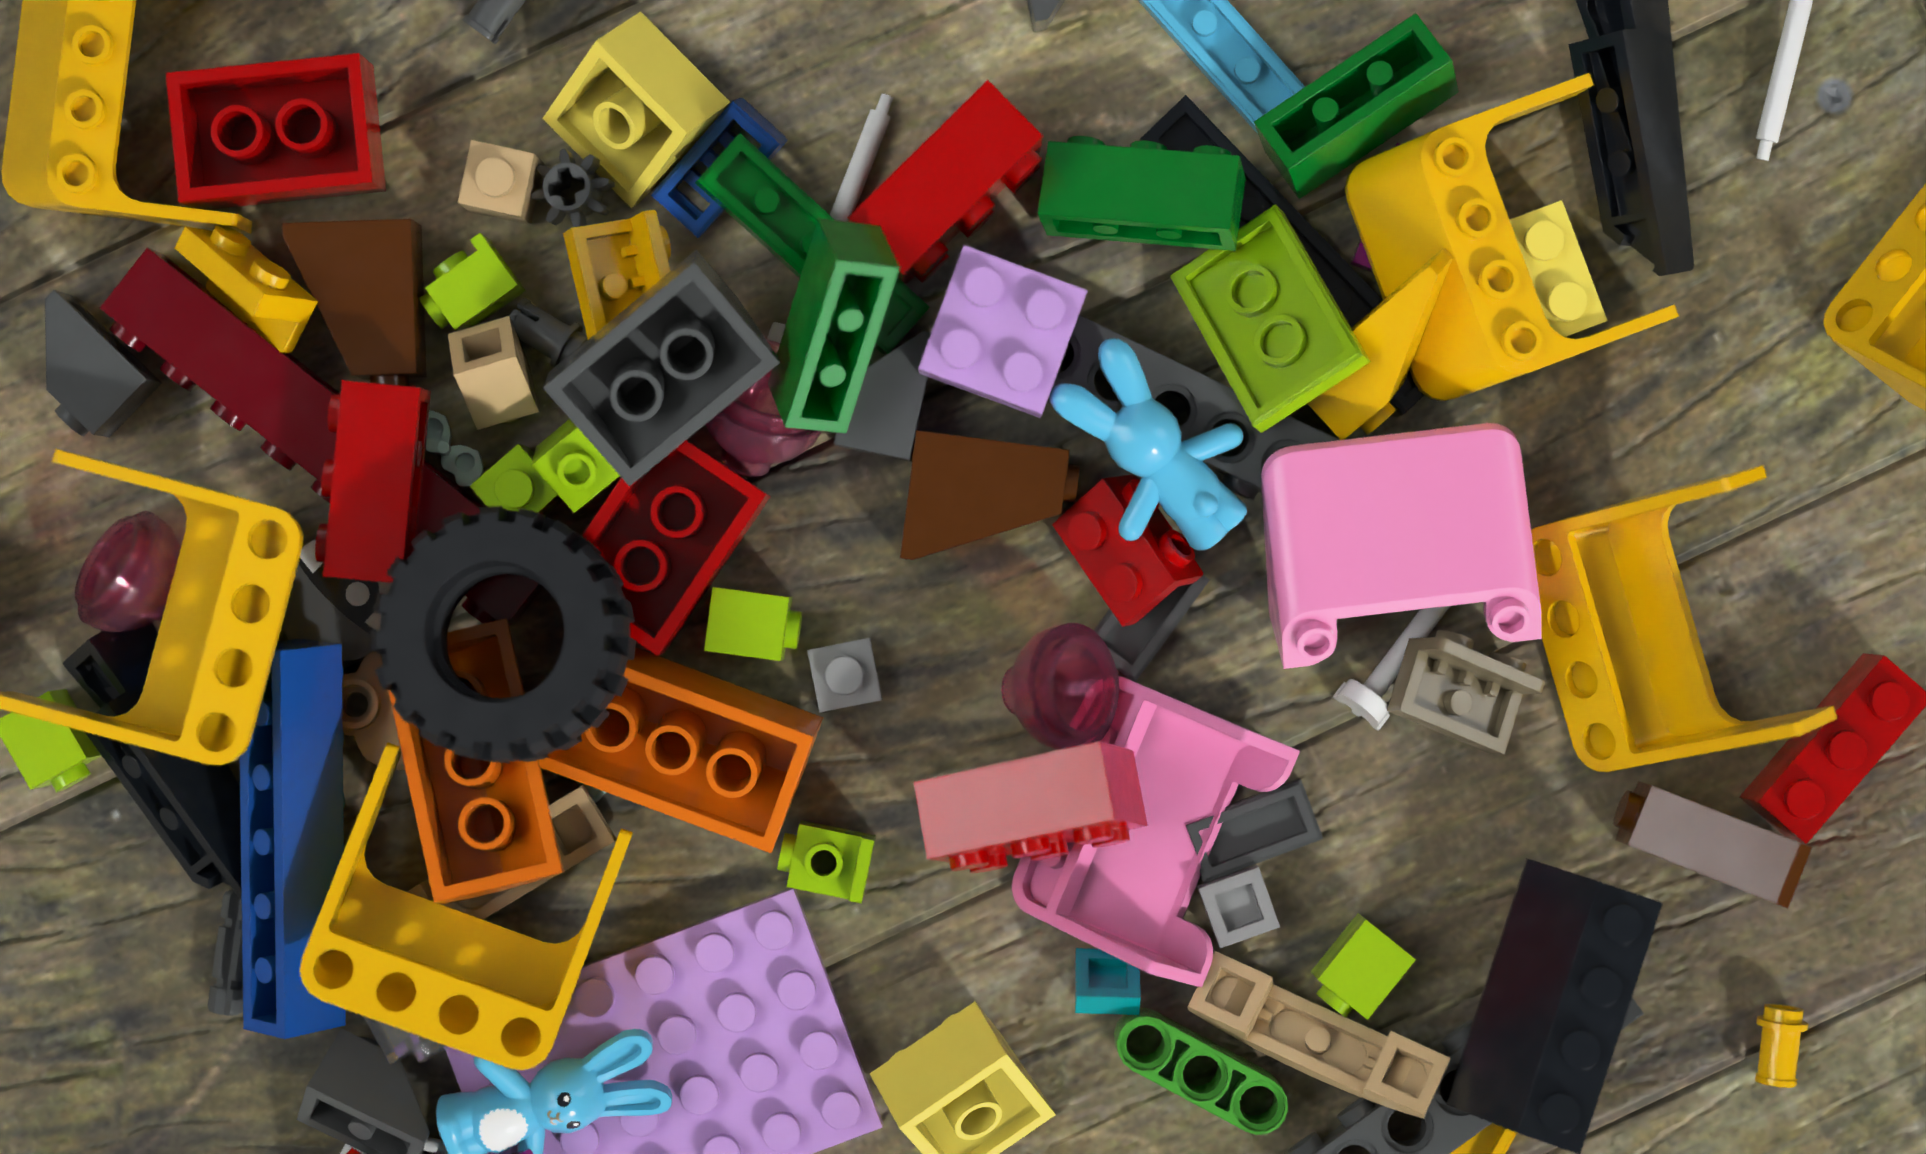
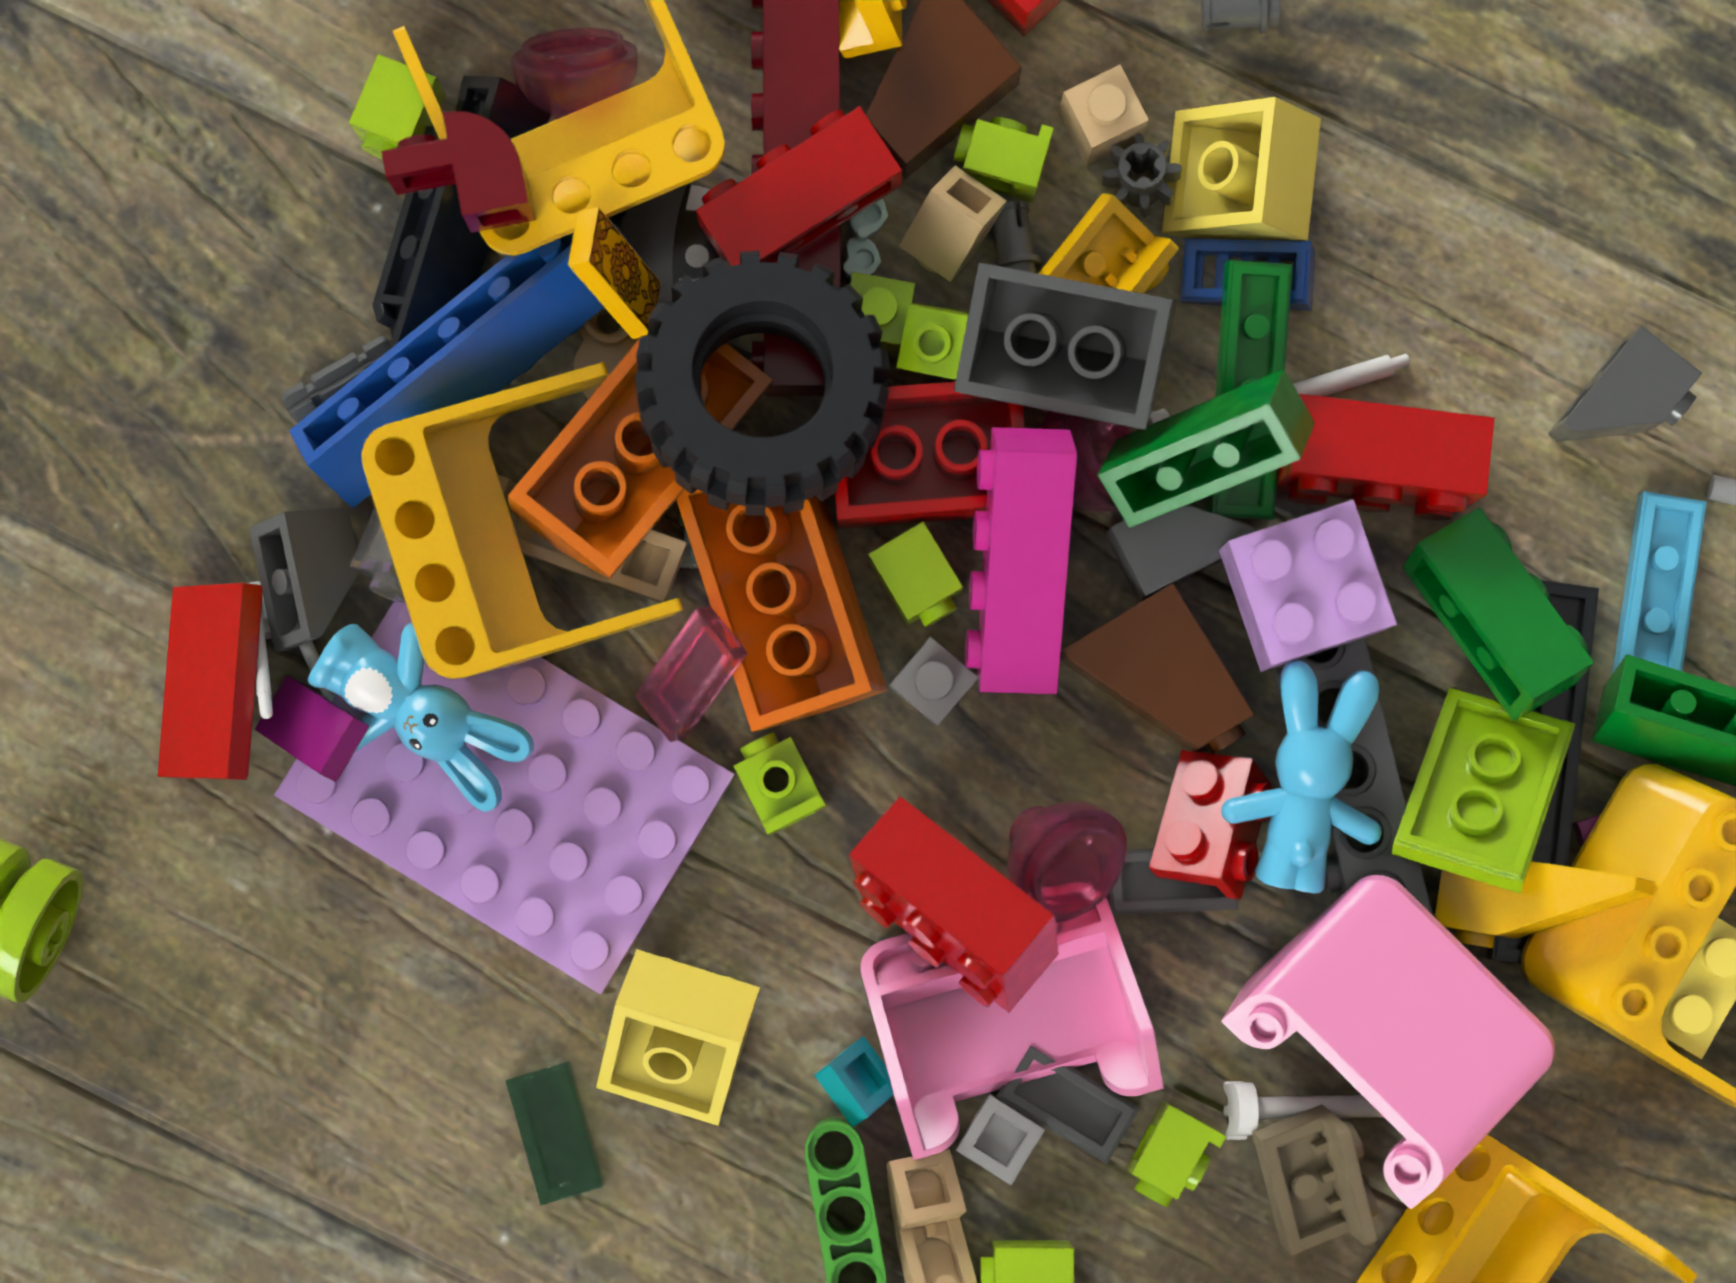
camera: 50 degrees right, 5 degrees down
(144, 723) = (475, 158): none -> dark red brick
(321, 680) = (613, 271): none -> yellow tile
(687, 863) = (690, 673): none -> clear pink tile
(806, 535) = (1024, 559): none -> dark pink brick
(1355, 783) = (1172, 1154): none -> lime brick

